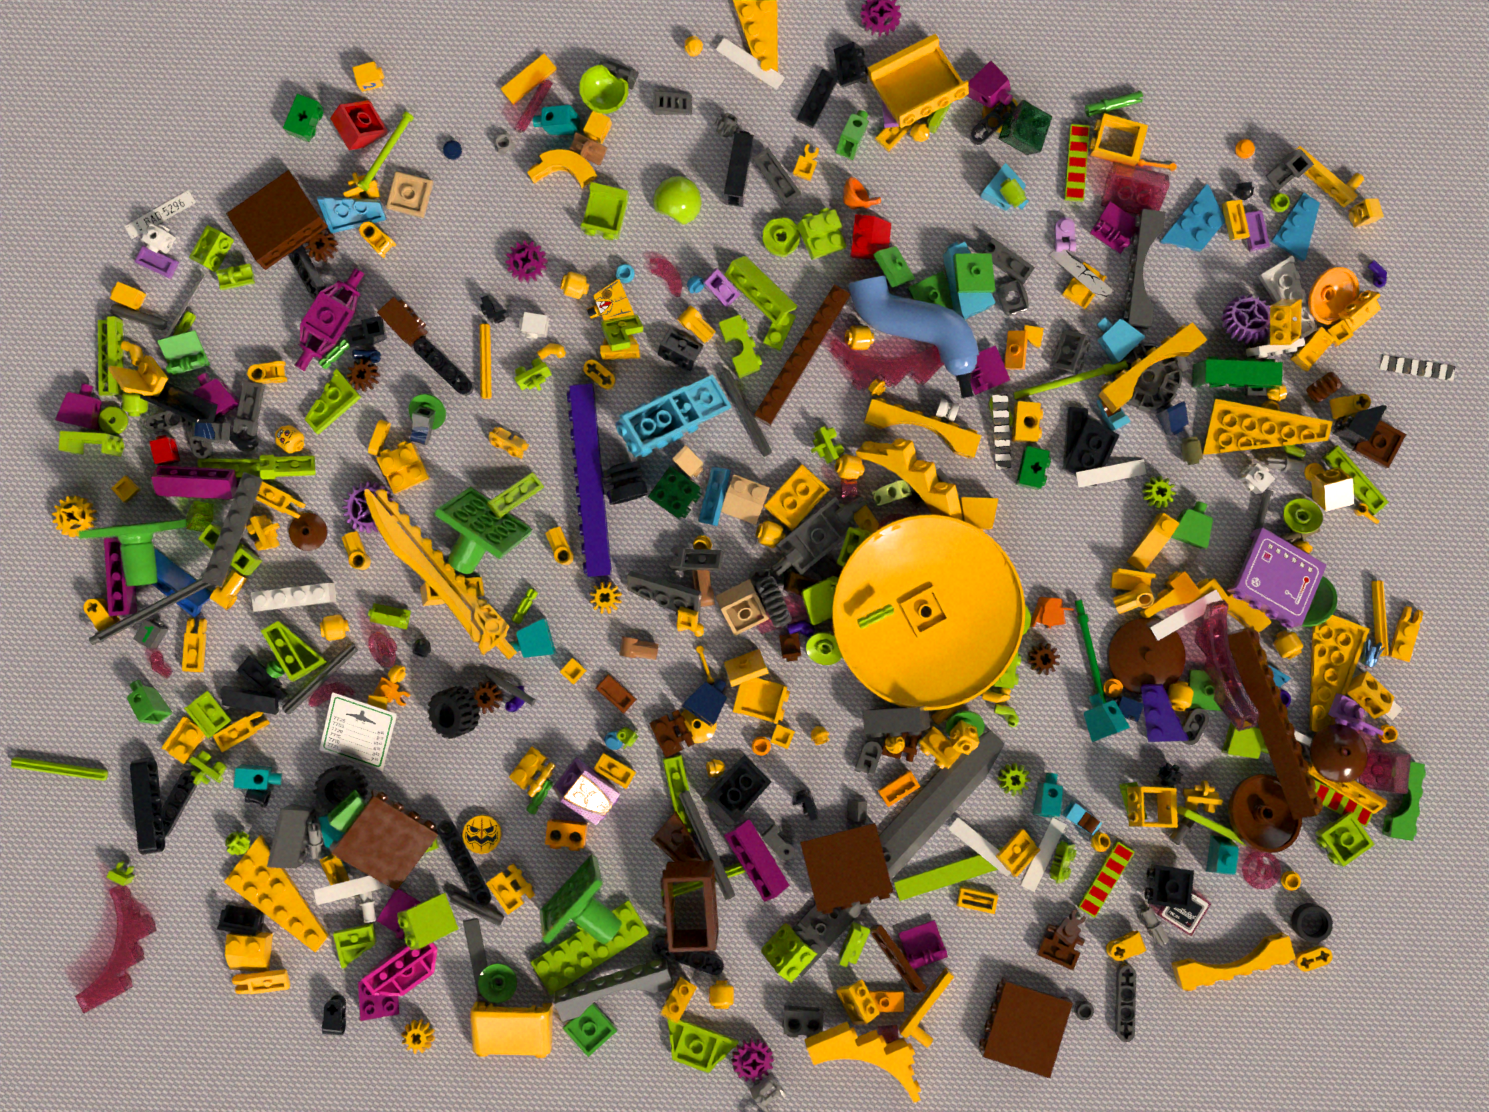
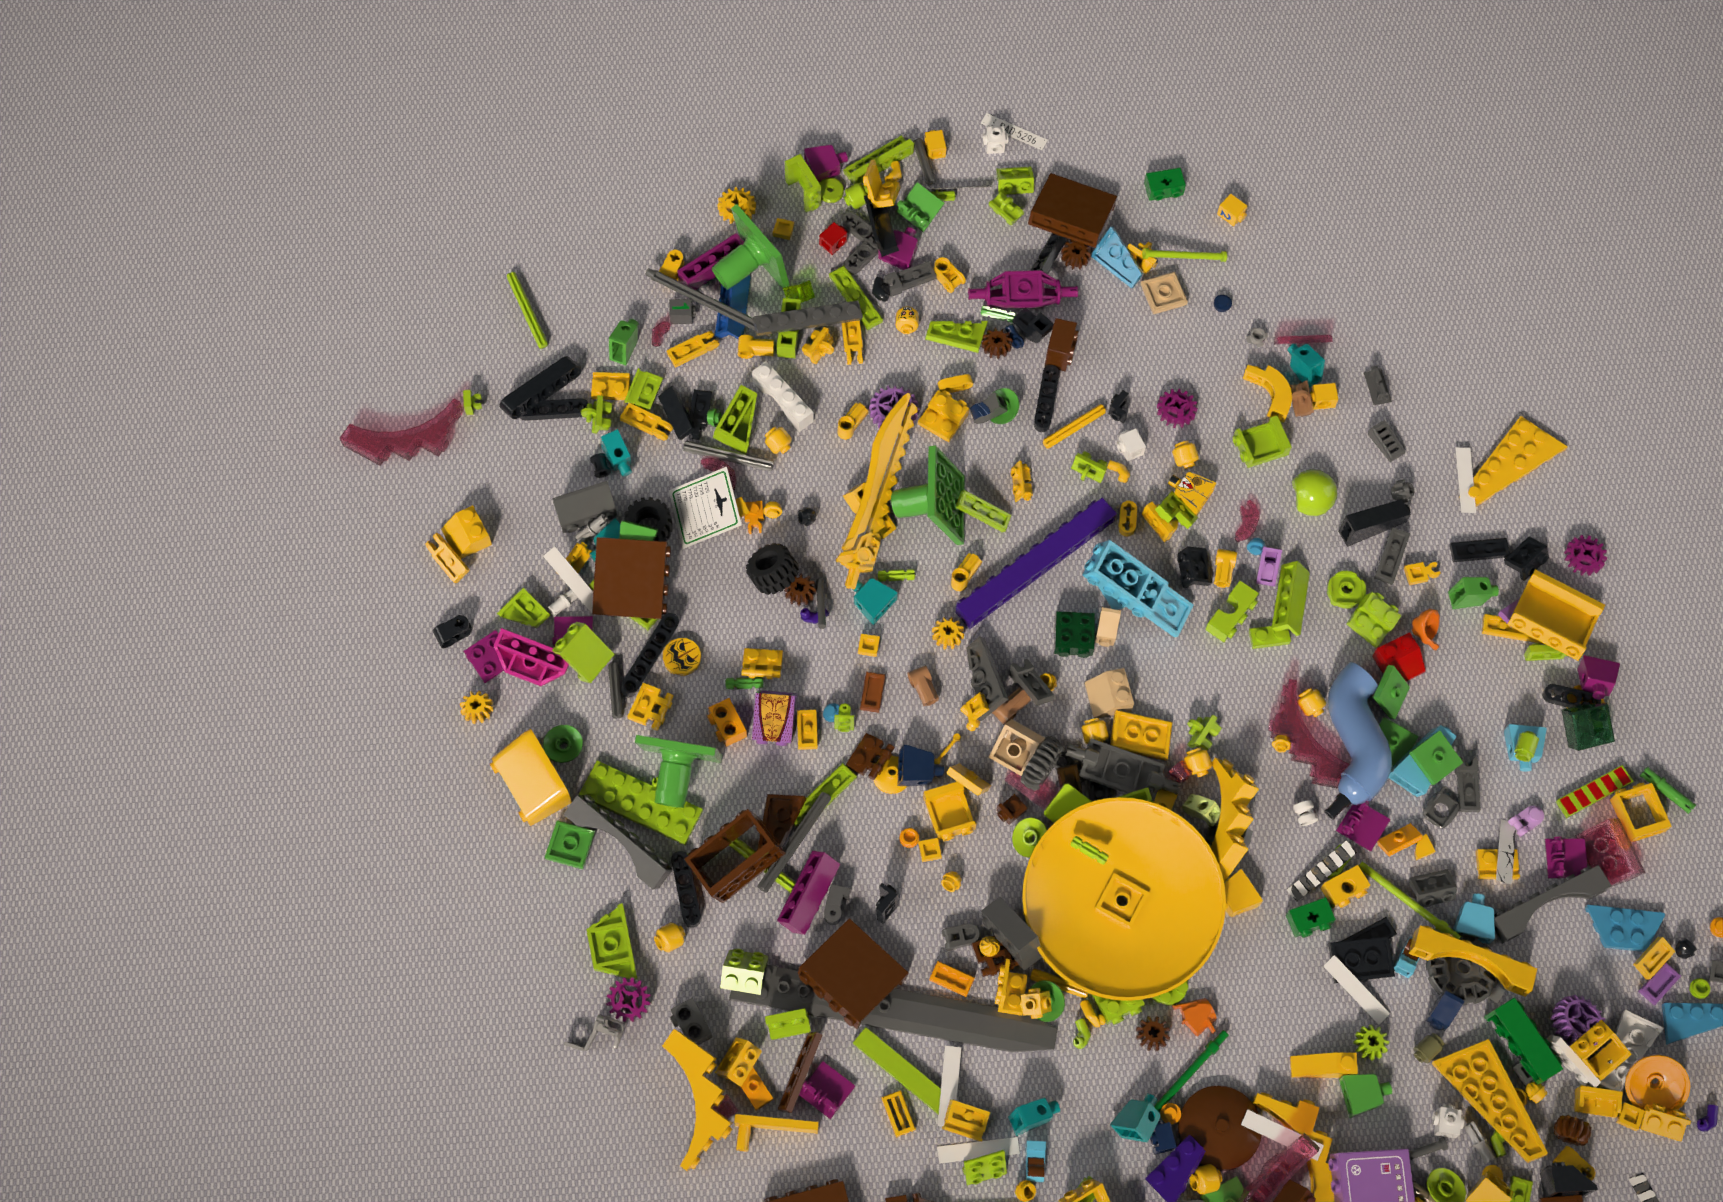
camera: 55 degrees right, 20 degrees down
(156, 262) = (975, 150): medium lavender tile -> none
(194, 482) = (824, 272): magenta brick -> none
(211, 432) = (872, 261): dark grey leg -> none
(237, 843) = (552, 471): lime gear -> none
(241, 920) = (489, 512): black hinge -> none
(276, 895) = (527, 523): yellow wing -> none
(286, 466) = (878, 321): lime plate -> none
(316, 535) = (841, 385): reddish brown dish -> none
(358, 124) = (1190, 225): red slope -> none
(378, 240) = (1111, 291): yellow piece -> none
(385, 647) = (788, 487): clear pink piece -> none
(389, 616) = (815, 477): lime hinge -> none
(476, 949) = (581, 710): dark grey sticker -> none
(528, 79) = (1321, 324): yellow tile -> none
(602, 90) = (1355, 380): lime cylinder -> none
(624, 483) = (1054, 587): black wheel -> none
(625, 273) = (1224, 488): medium azure plate -> none
(677, 1000) = (643, 899): yellow brick -> none
(693, 46) = (1445, 428): yellow plate -> none
(714, 496) = (1094, 667): dark azure plate -> none
(715, 768) = (864, 810): yellow plate -> none
(736, 791) = (856, 839): black slope -> none
(746, 413) = (1181, 652): dark grey axle -> none
(802, 355) = (1261, 665): reddish brown brick -> none
(803, 627) = (1035, 809): dark purple arm -> none
(857, 810) = (908, 956): dark grey slope -> none
(920, 132) = (1516, 645): yellow plate -> none
(959, 440) = (1262, 764): yellow arch -> none
(1020, 775) = (1035, 1080): lime gear -> none
(1128, 579) = (1277, 1069): yellow panel -> none
(1133, 600) = (1260, 1078): yellow piece -> none
(1171, 167) = (1655, 875): light orange hinge -> none

